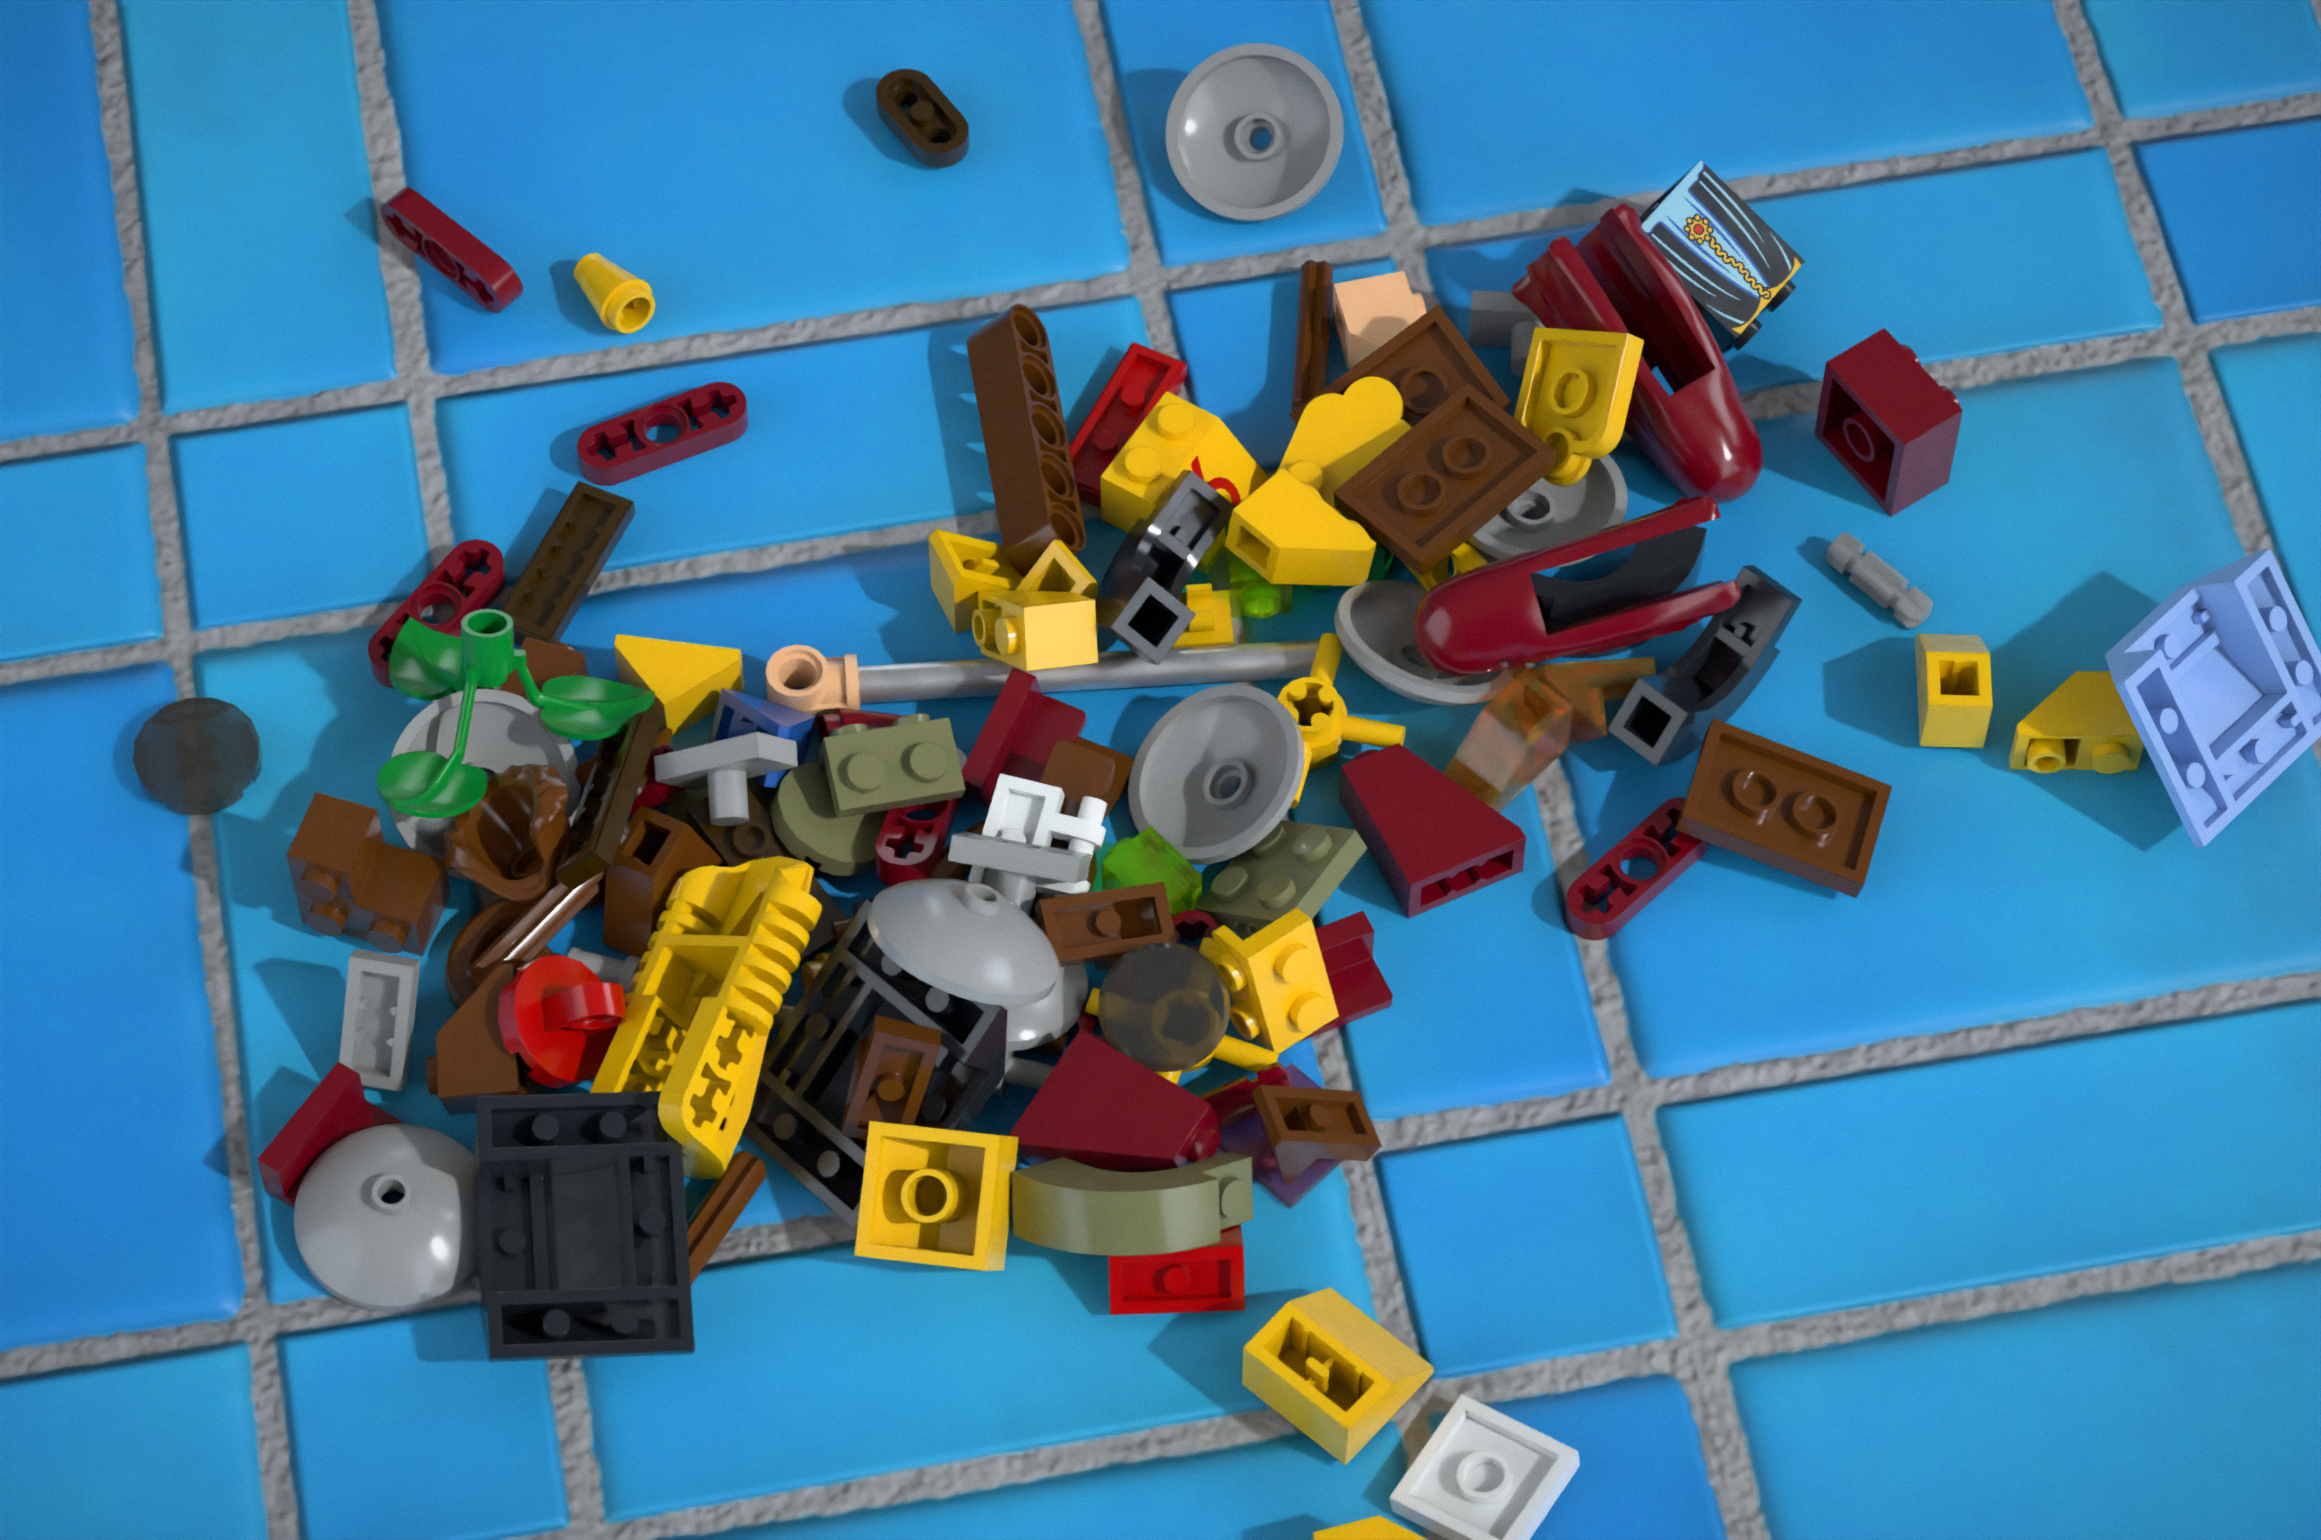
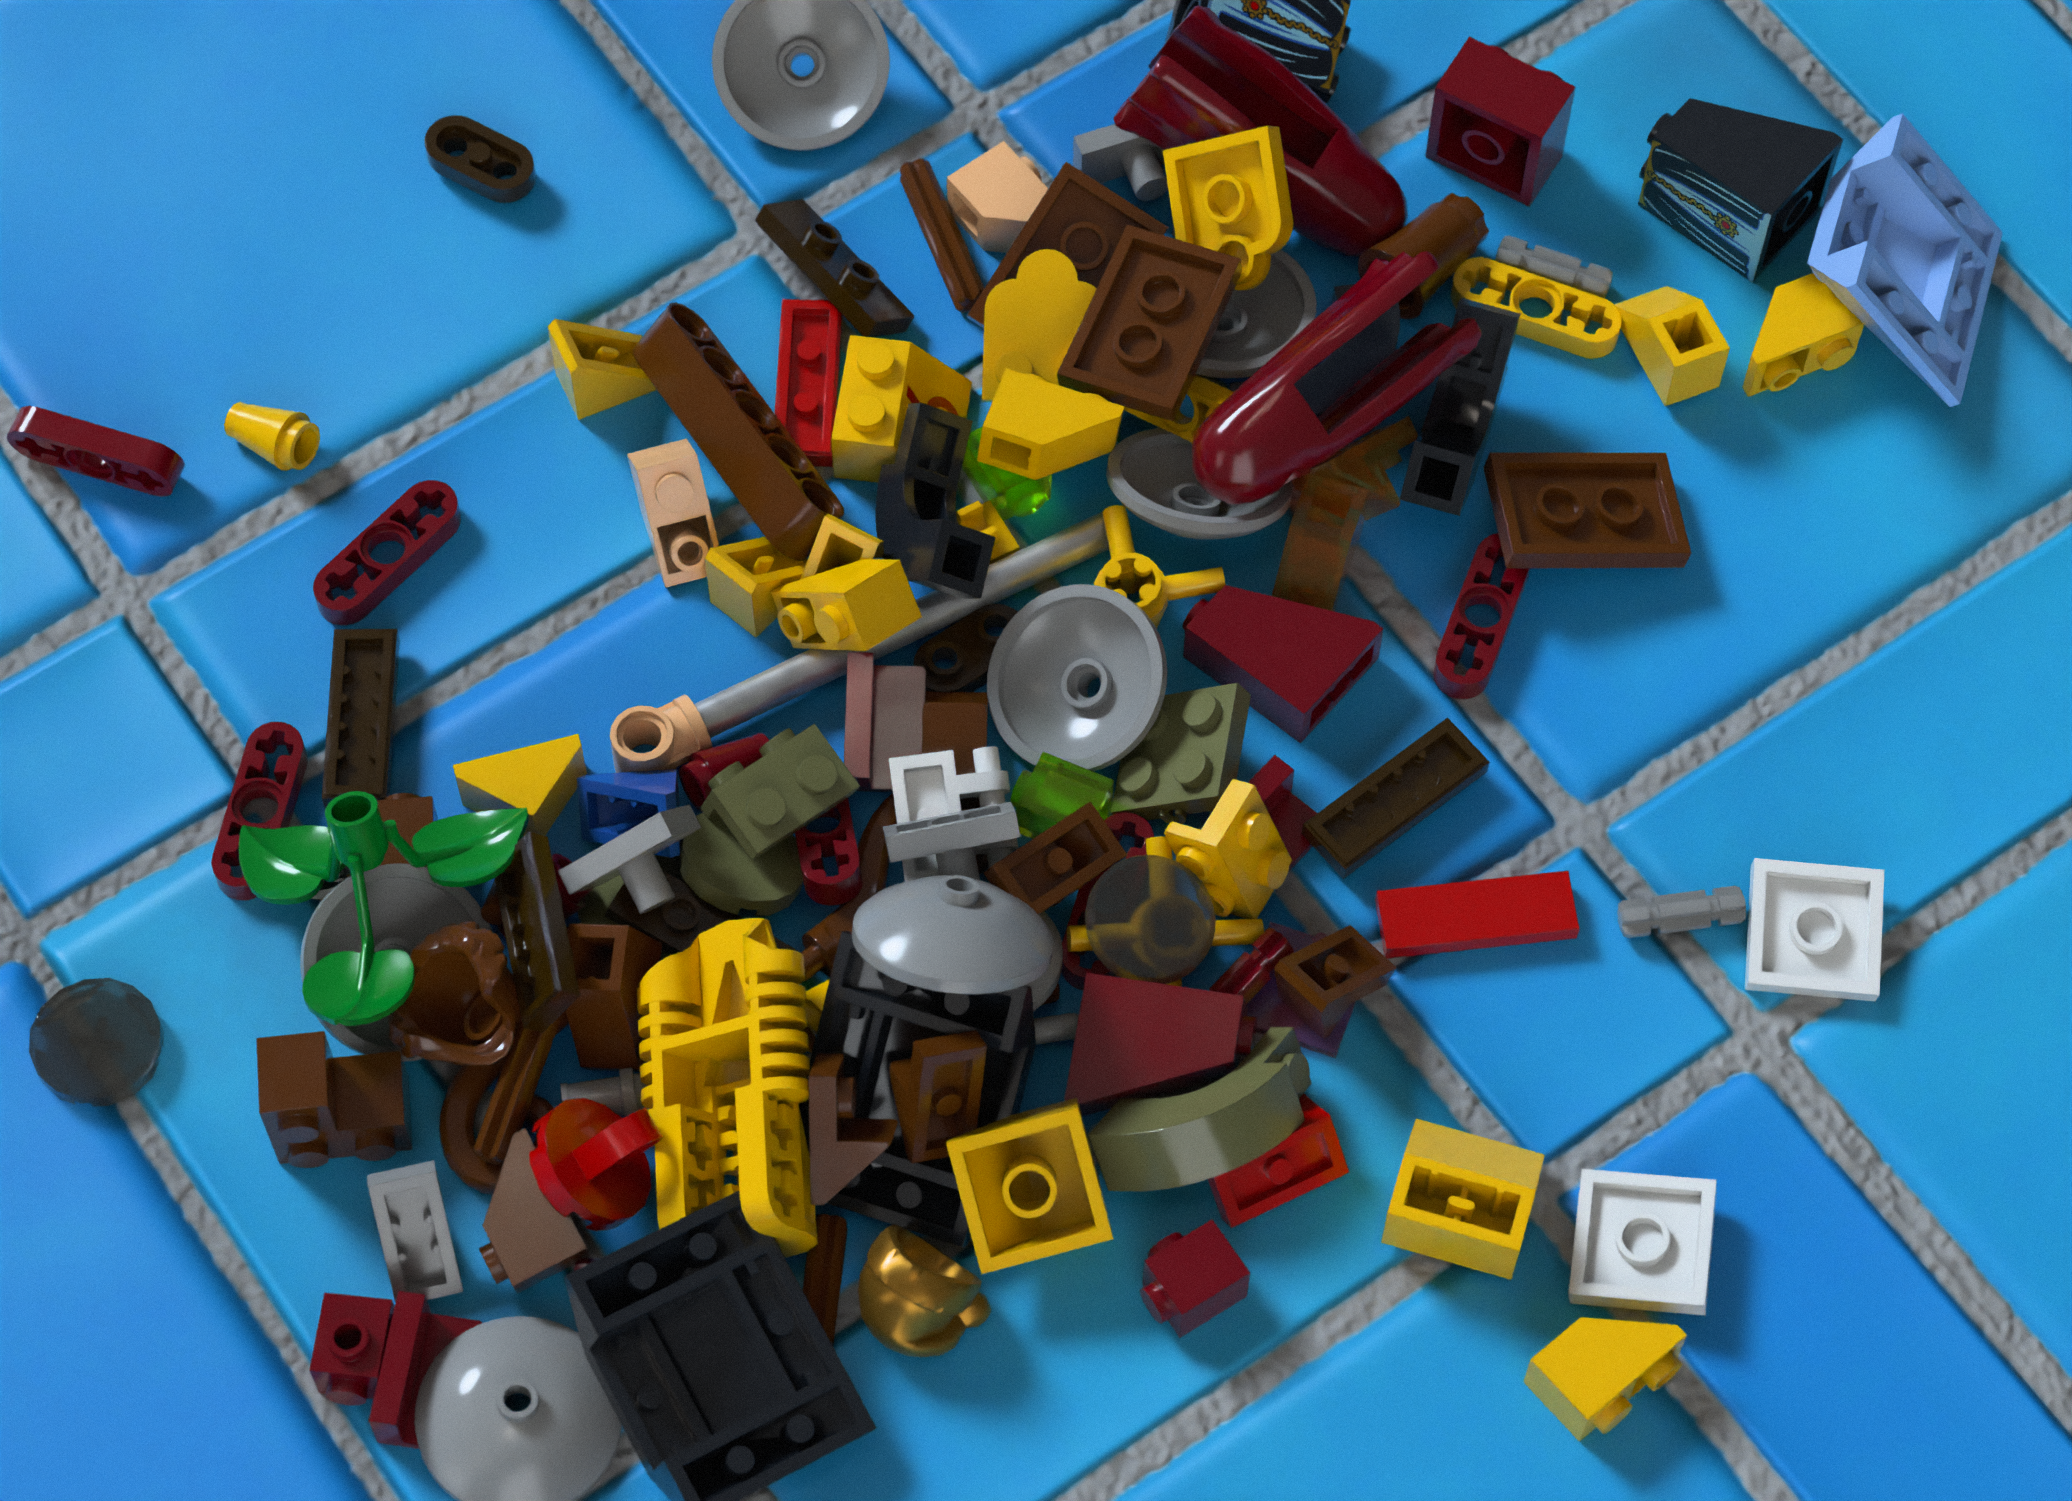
camera: 25 degrees left, 5 degrees up
(274, 1091) = (350, 1346): none -> dark red brick
(775, 1080) = (838, 1141): none -> reddish brown slope
(792, 1253) = (917, 1295): none -> pearl gold piece
(929, 337) = (596, 366): none -> yellow slope
(933, 486) = (674, 509): none -> light nougat slope
(1048, 1342) = (1192, 1278): none -> dark red brick
(1137, 714) = (965, 645): none -> dark brown plate
(1194, 331) = (834, 268): none -> dark brown plate
(1465, 997) = (1395, 798): none -> dark brown plate
(1488, 1132) = (1476, 914): none -> red tile
(1683, 1206) = (1681, 911): none -> light grey axle
(1762, 519) = (1445, 230): none -> reddish brown plant
(1801, 1271) = (1814, 929): none -> white plate
(1849, 635) = (1547, 330): none -> yellow beam
(2090, 558) = (1736, 180): none -> black slope

